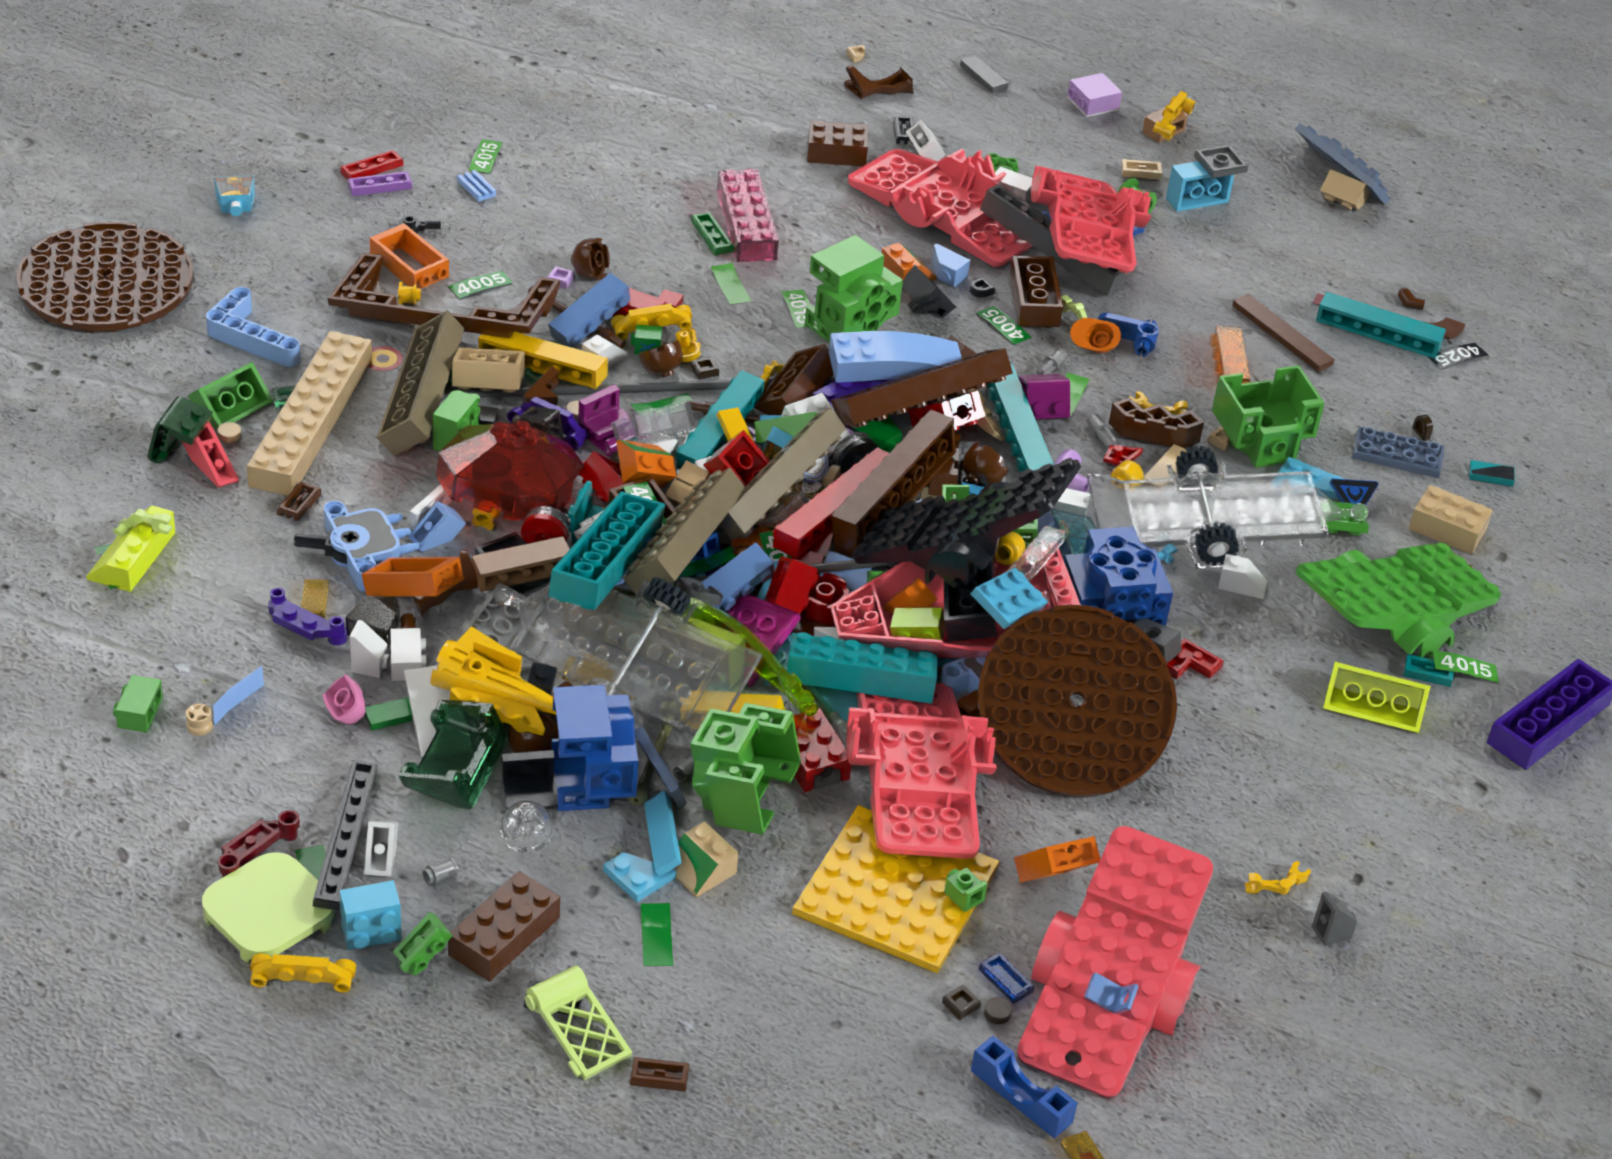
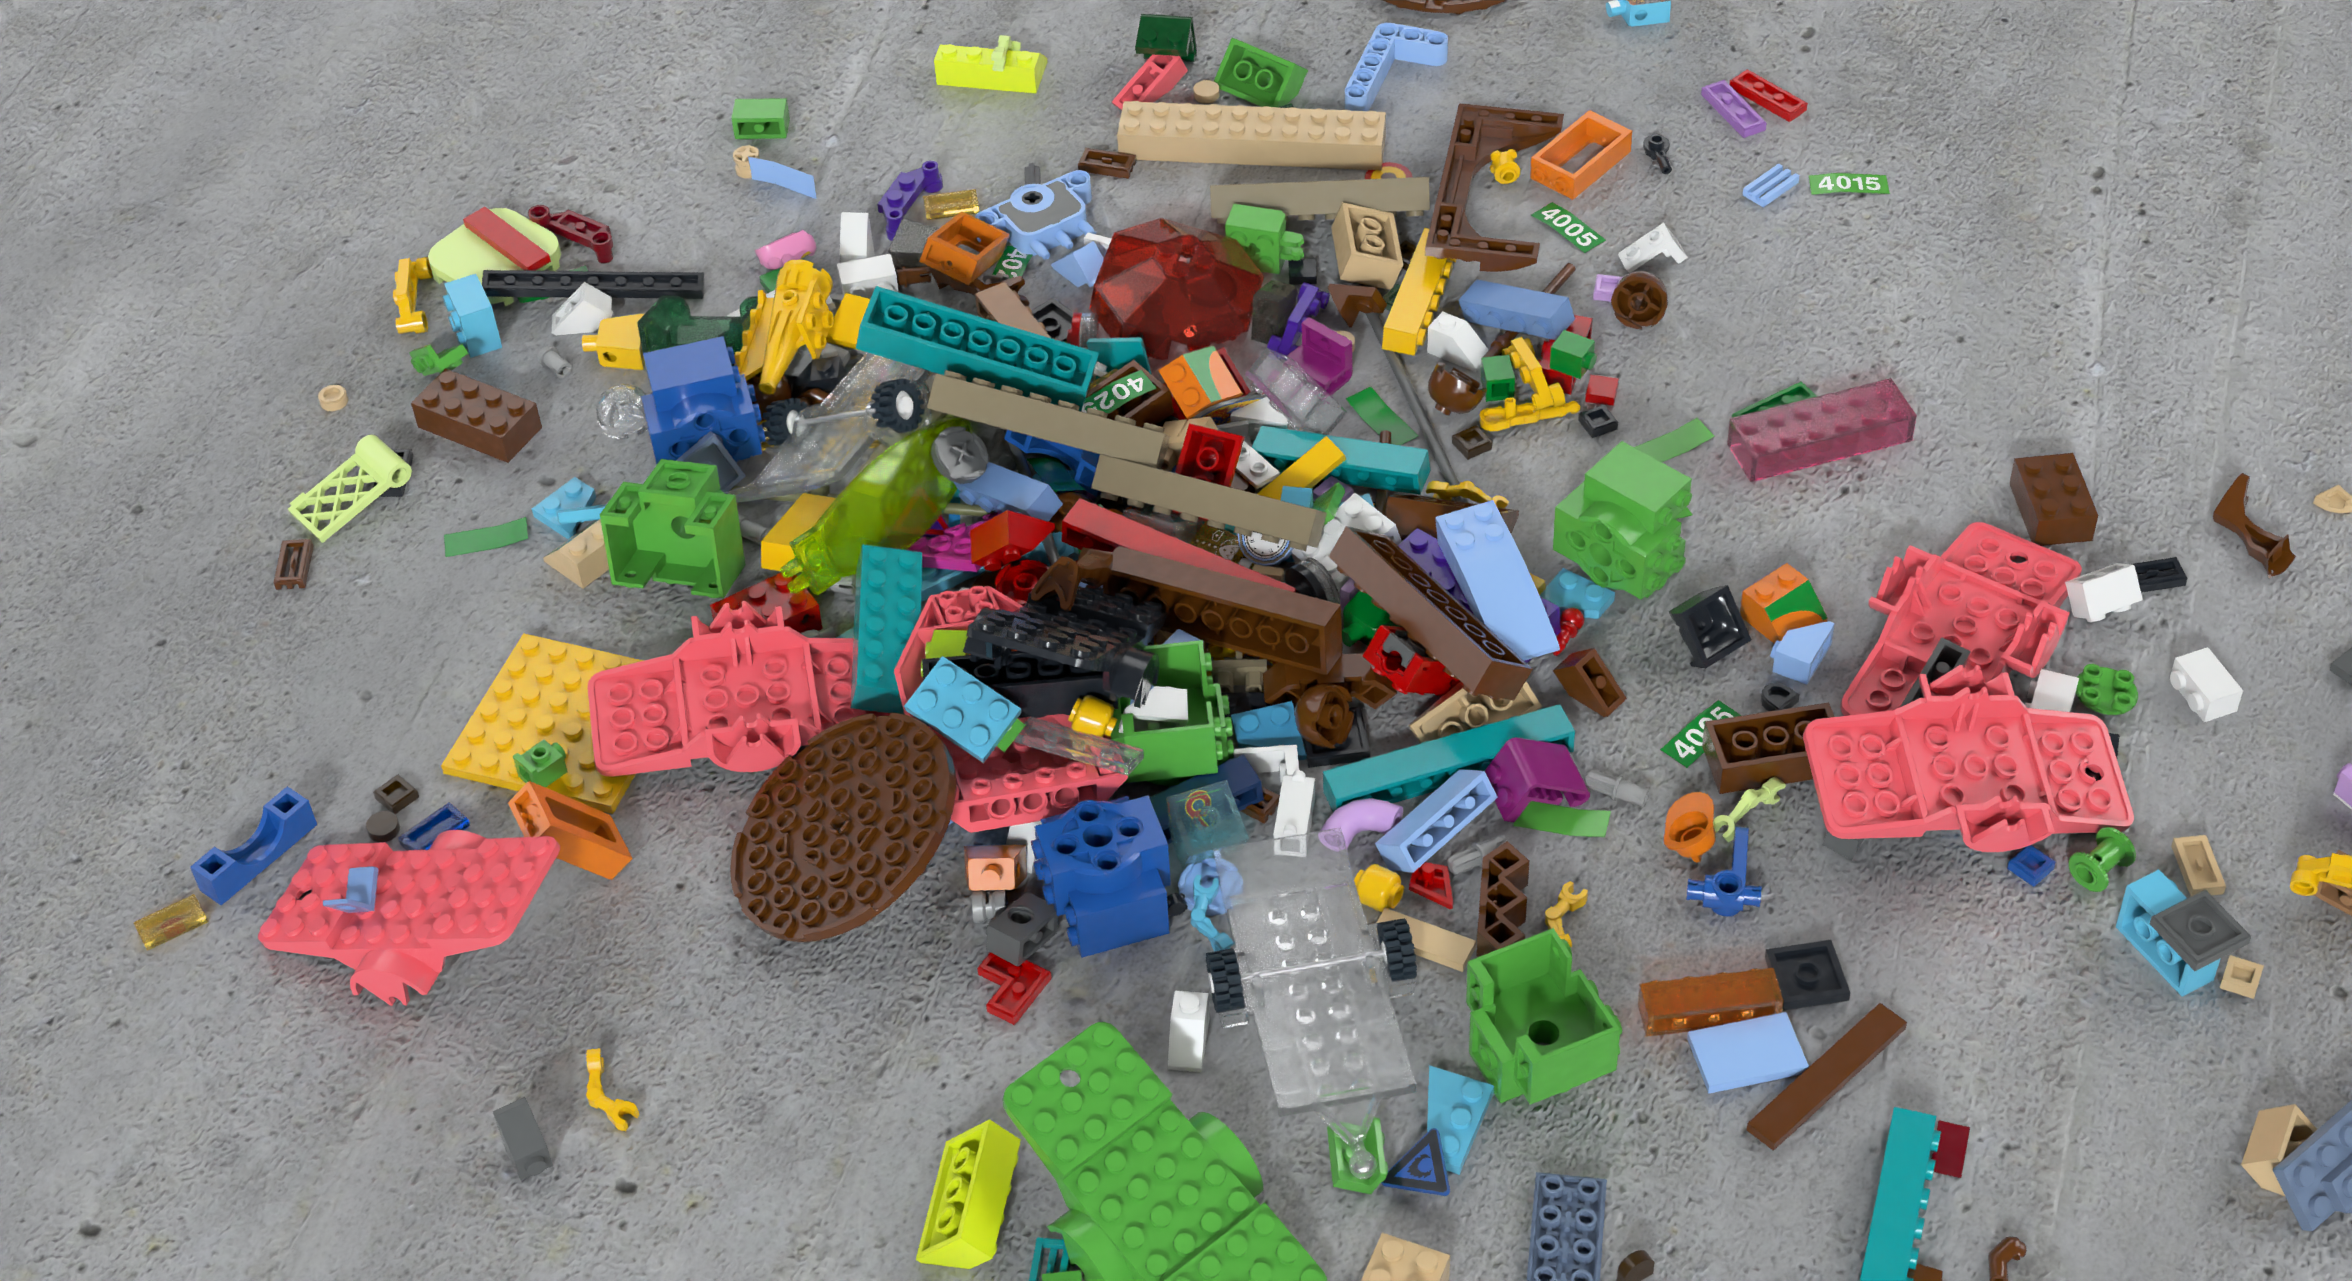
camera: 90 degrees right, 5 degrees up
(264, 886) = (506, 240): none -> tile
(430, 1043) = (333, 398): none -> tan tile
(433, 820) = (617, 343): none -> yellow torso
(532, 247) = (1649, 246): none -> white bracket
(657, 290) = (1572, 354): none -> green brick
(701, 308) = (1598, 421): none -> black tile
(903, 515) = (1065, 575): none -> reddish brown animal
(1004, 131) = (2205, 684): none -> white brick
(1075, 435) = (1436, 820): none -> light blue brick
(1205, 318) = (1808, 974): none -> black plate
(1264, 355) = (1747, 1052): none -> light blue tile

